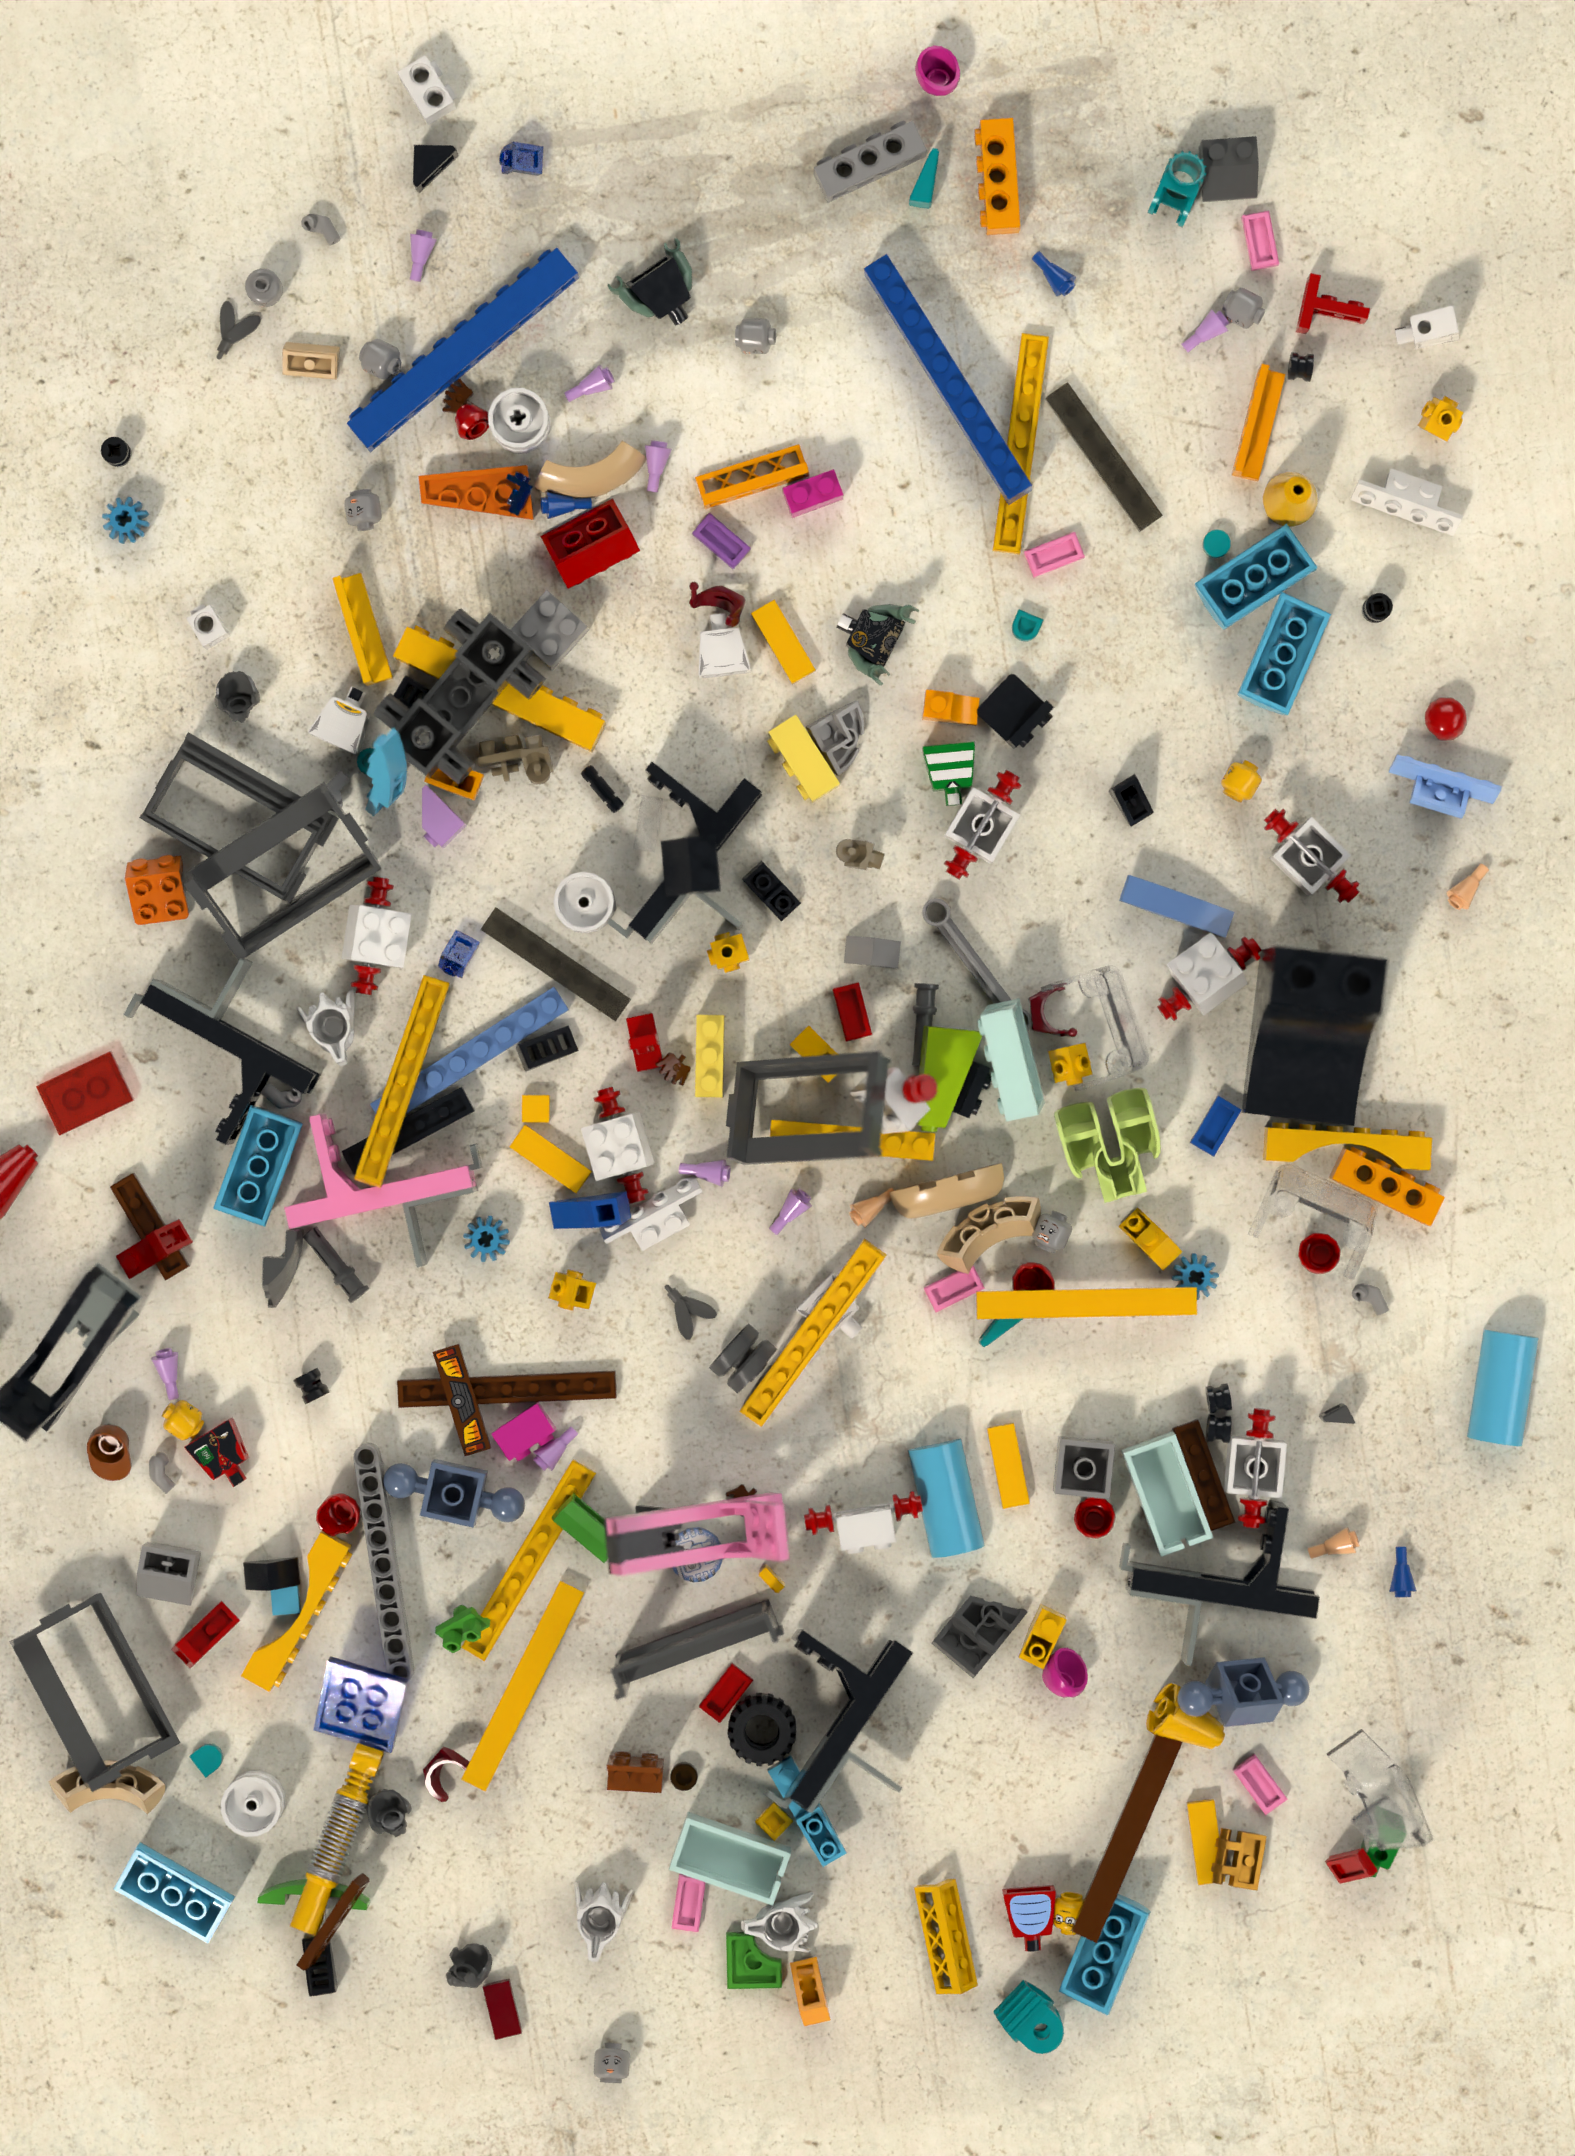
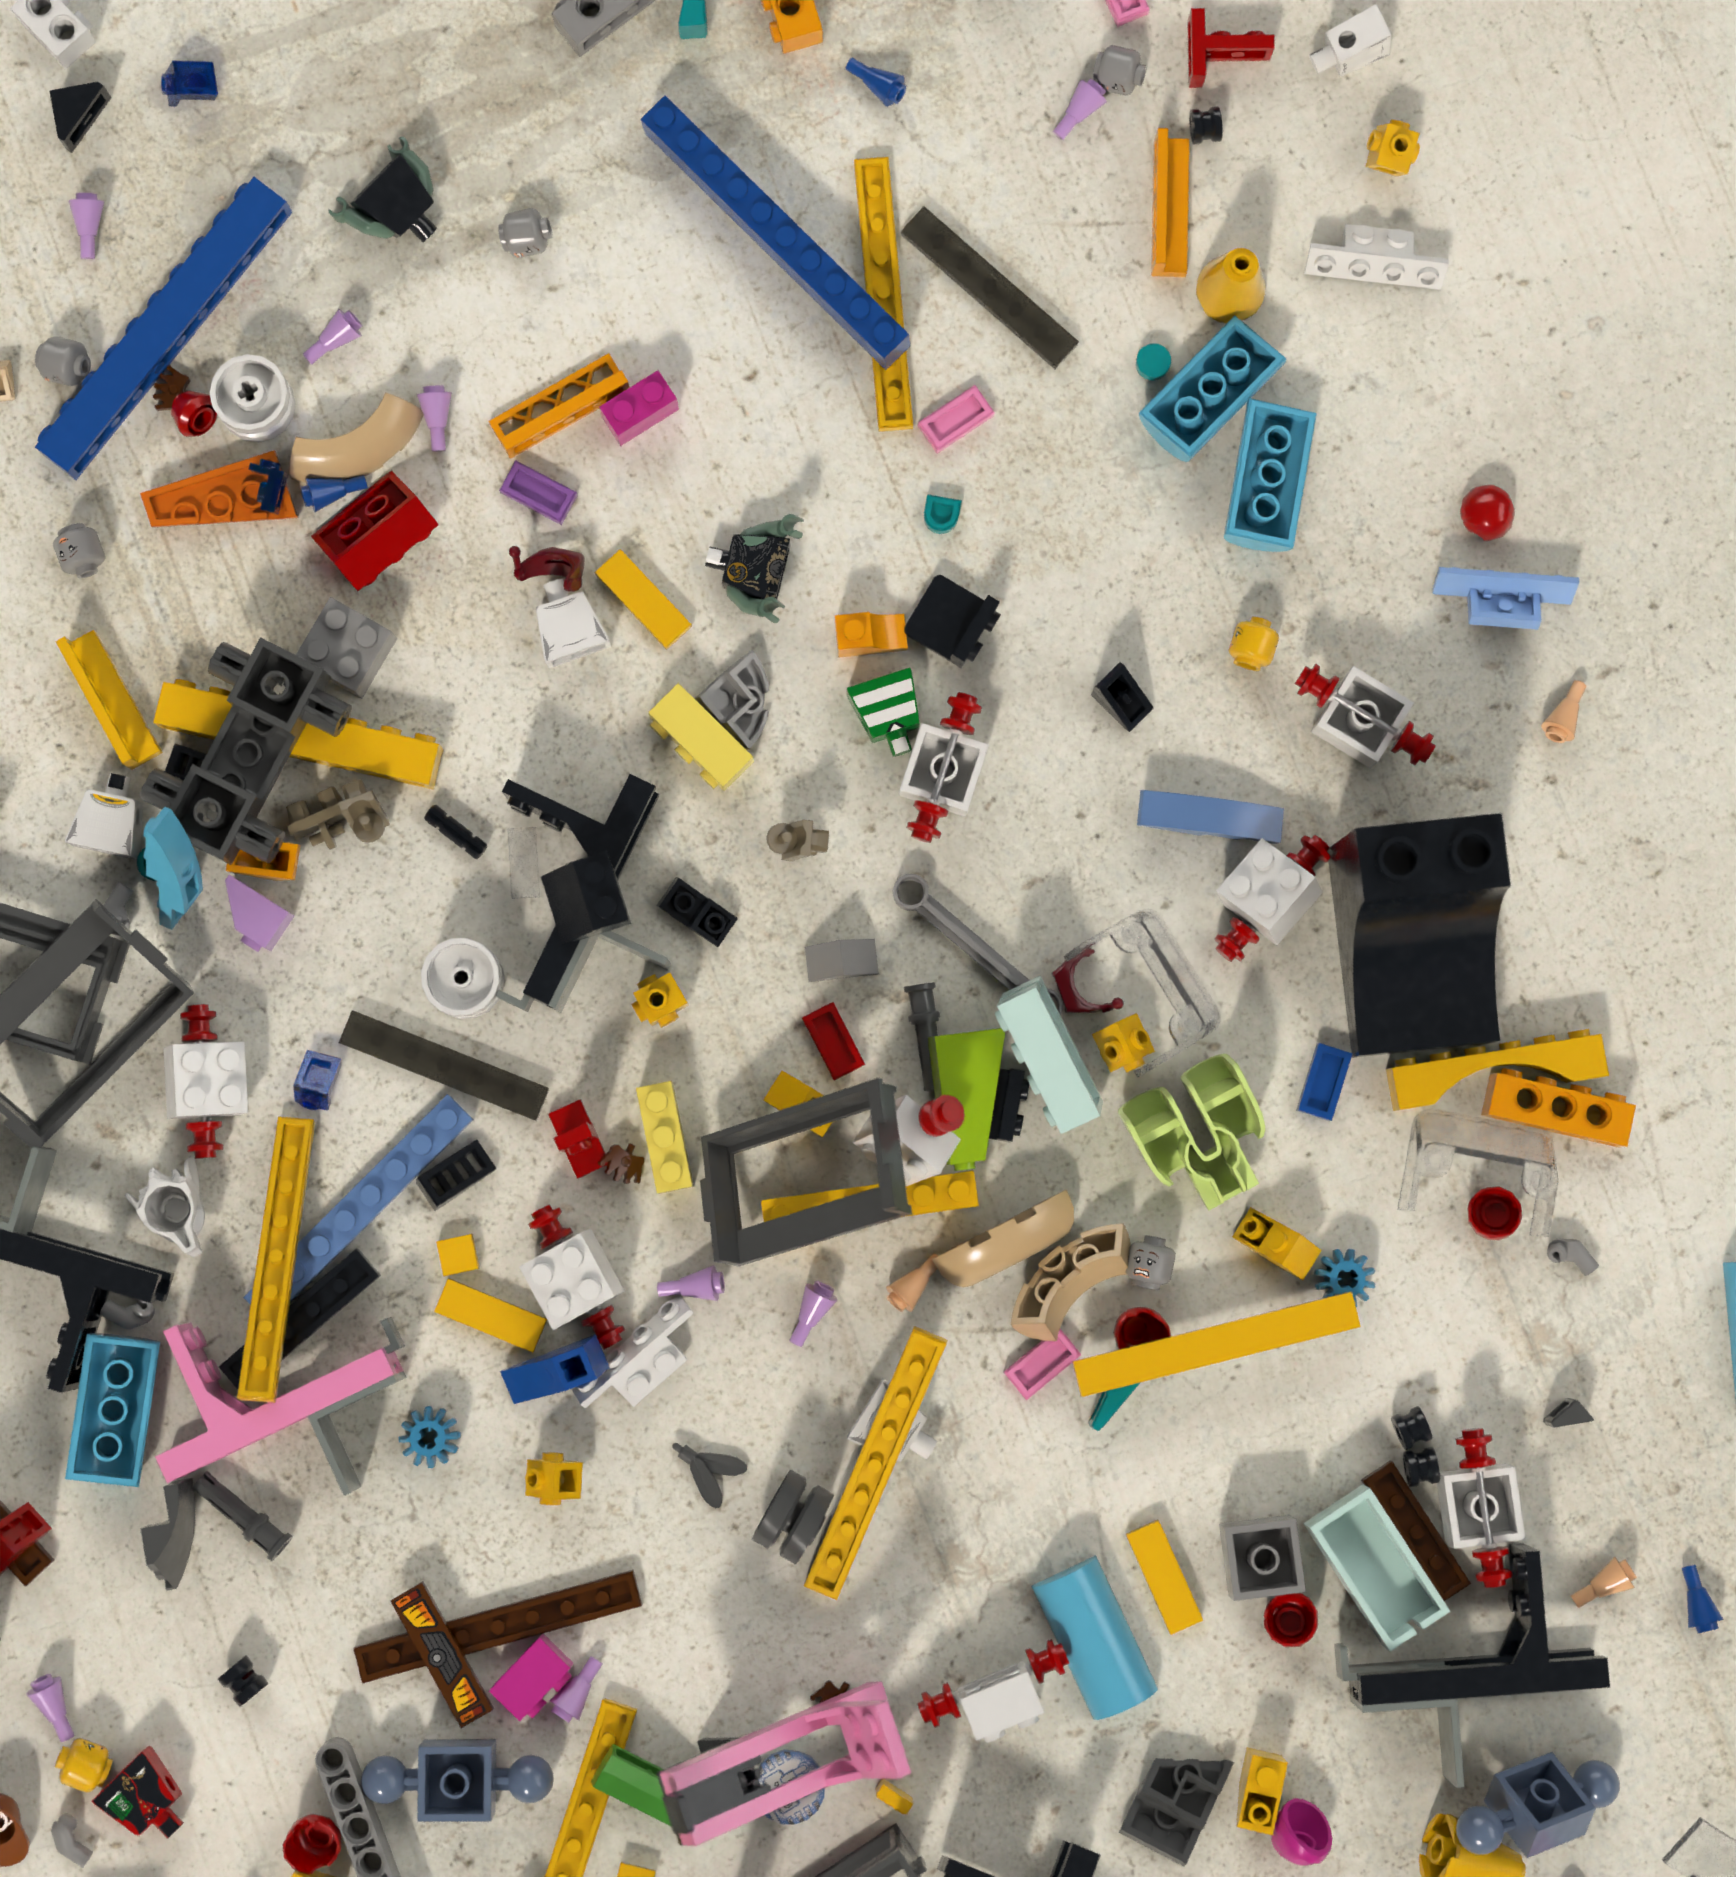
camera: 20 degrees left, 5 degrees down
(1374, 612) = (1366, 402): black wheel -> none

